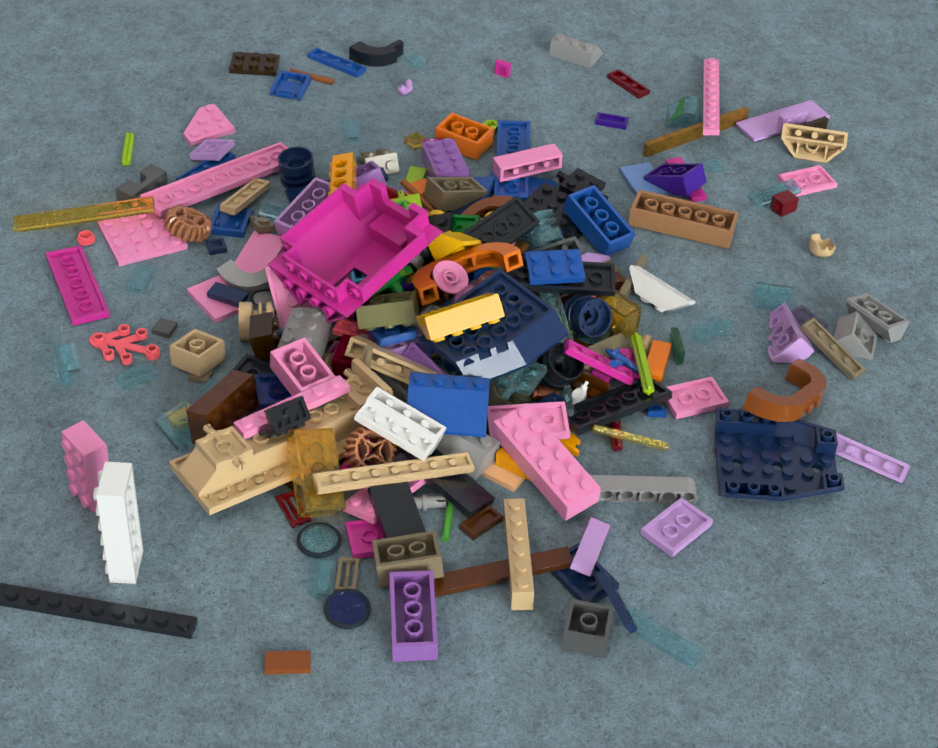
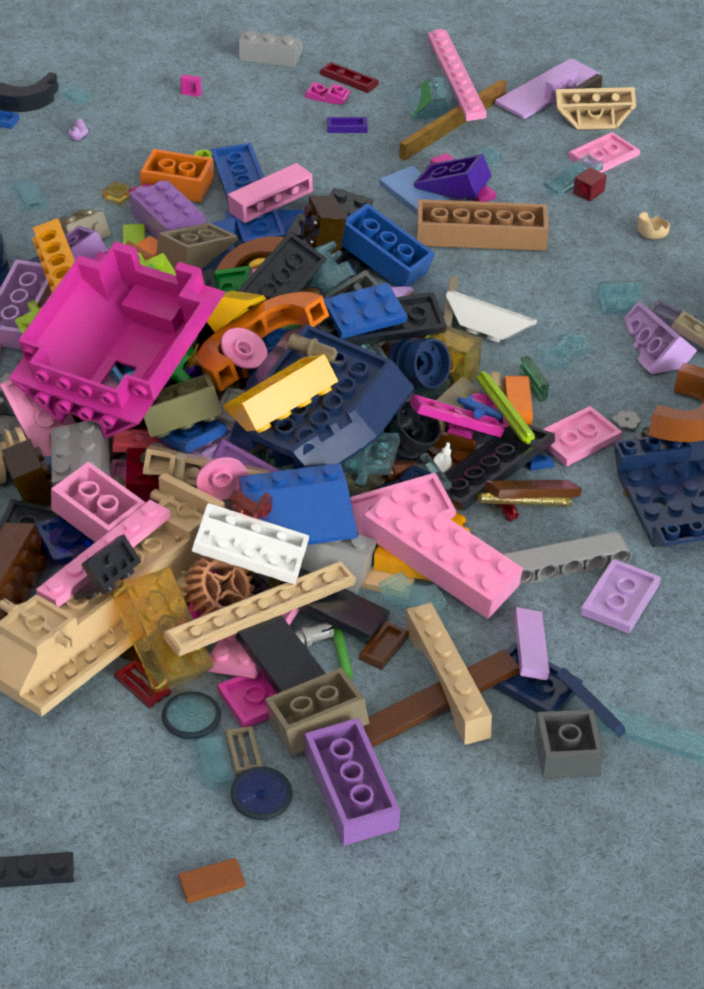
camera: 15 degrees left, 0 degrees up
(396, 370) = (220, 477): none -> bright pink dish
(413, 400) = (246, 506): none -> clear red bracket
(496, 286) = (311, 347): none -> dark tan axle
(508, 485) = (400, 591): none -> clear light blue tile
(554, 194) = (323, 222): none -> dark brown brick
(609, 95) = (335, 94): none -> dark pink slope
(639, 430) = (532, 489): none -> reddish brown tile
(738, 393) = (626, 420): none -> light grey plant

